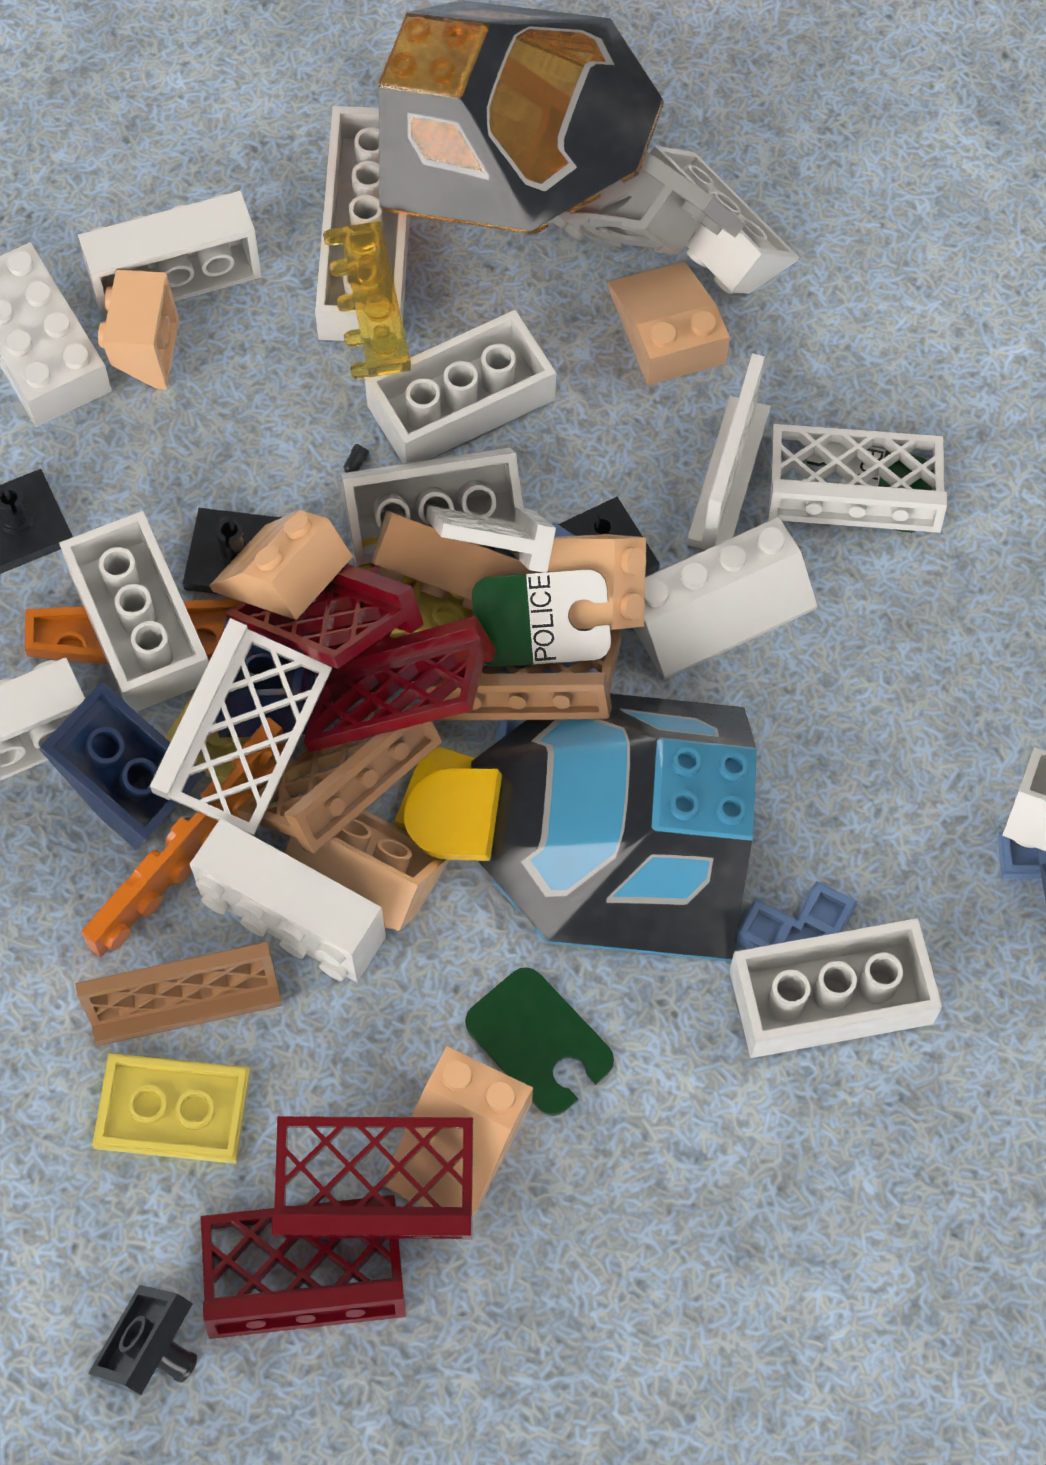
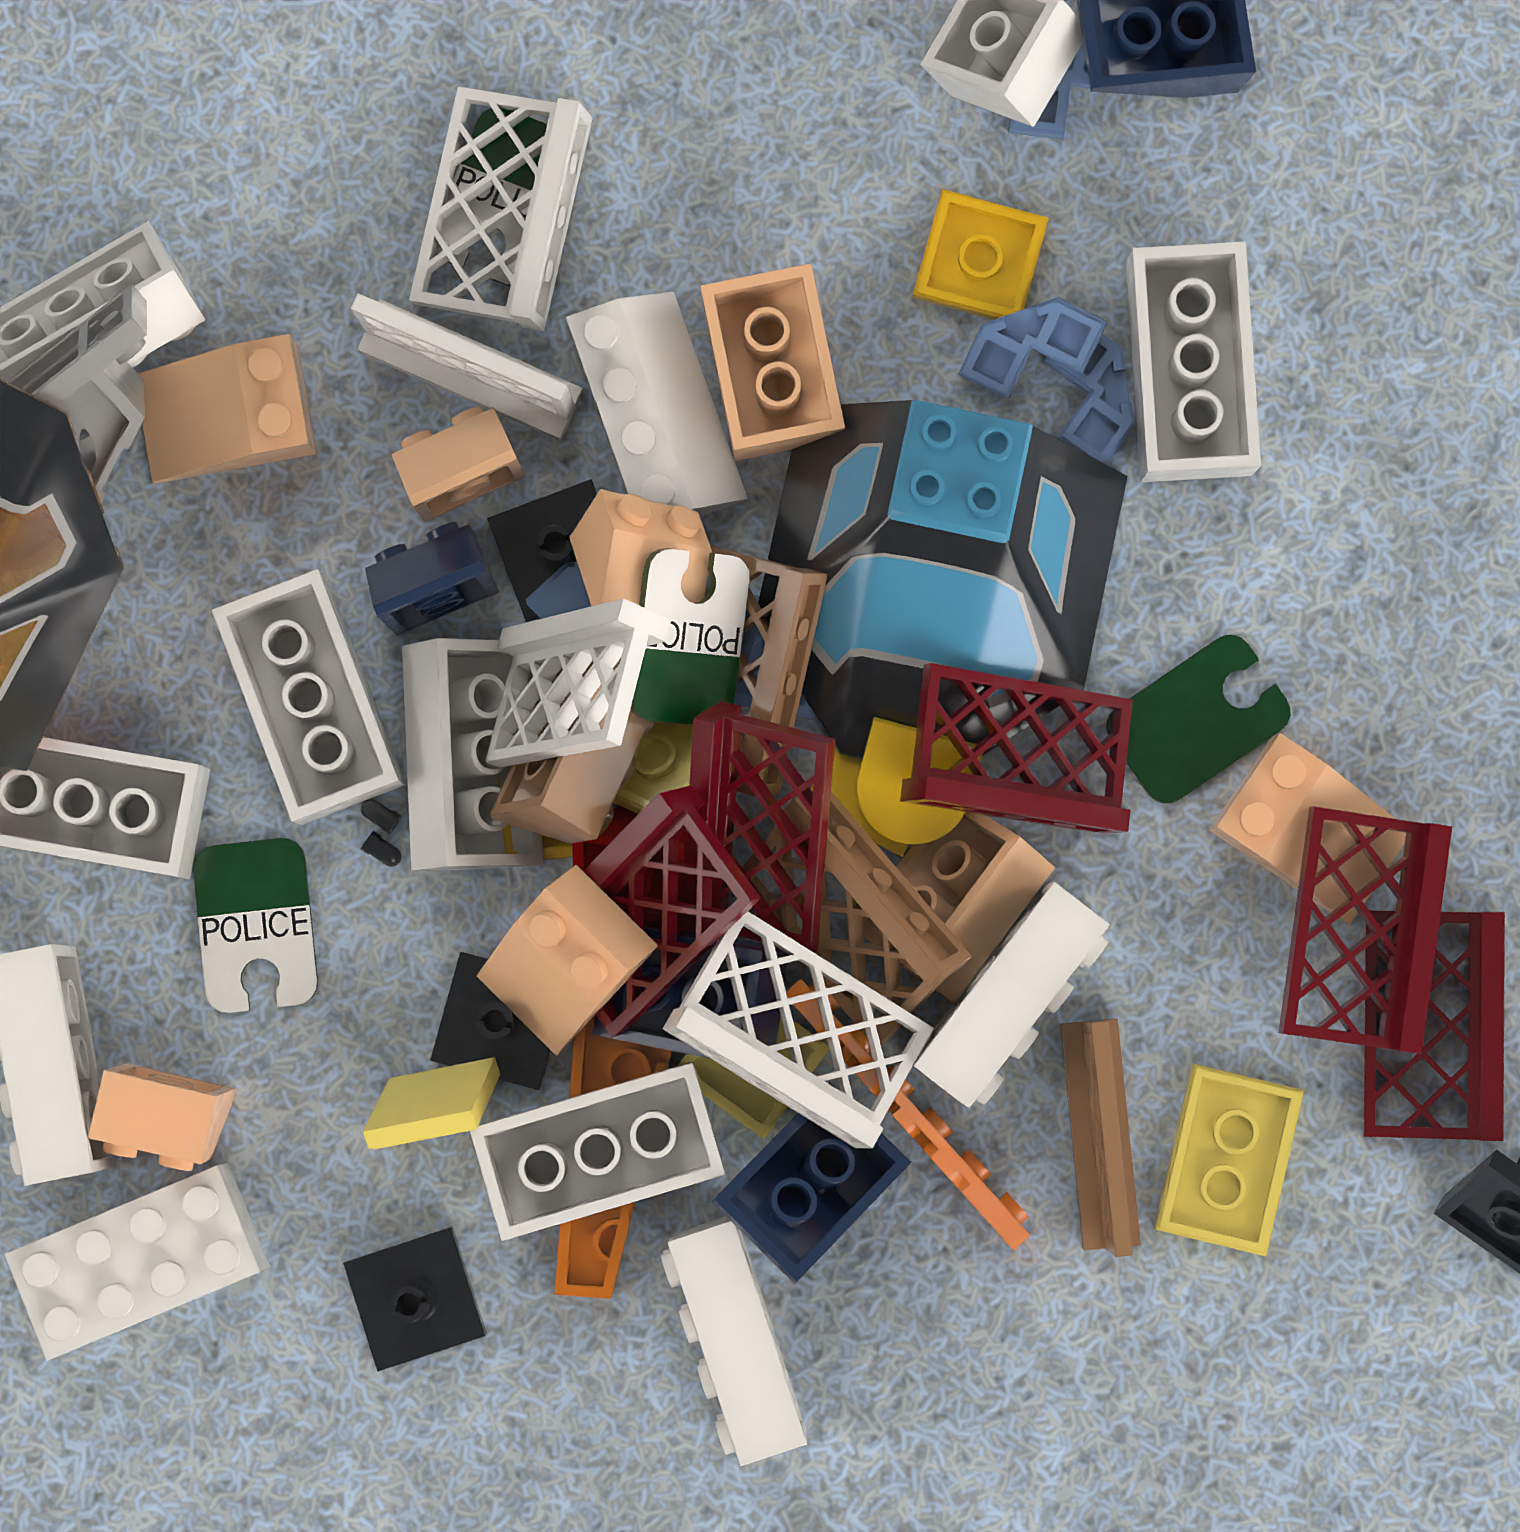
camera: 75 degrees left, 20 degrees up
(163, 499) = (432, 1103): none -> light yellow tile
(297, 385) = (250, 909): none -> piece
(371, 298) = (172, 797): clear yellow hinge -> none
(381, 455) = (380, 815): none -> black piece
(449, 885) = (1010, 799): none -> dark red fence
(559, 453) = (429, 579): none -> dark blue slope
(652, 466) = (457, 463): none -> light nougat slope
(771, 663) = (772, 361): none -> light nougat slope
(841, 875) = (1049, 327): none -> medium blue tile
(890, 825) = (979, 256): none -> yellow tile

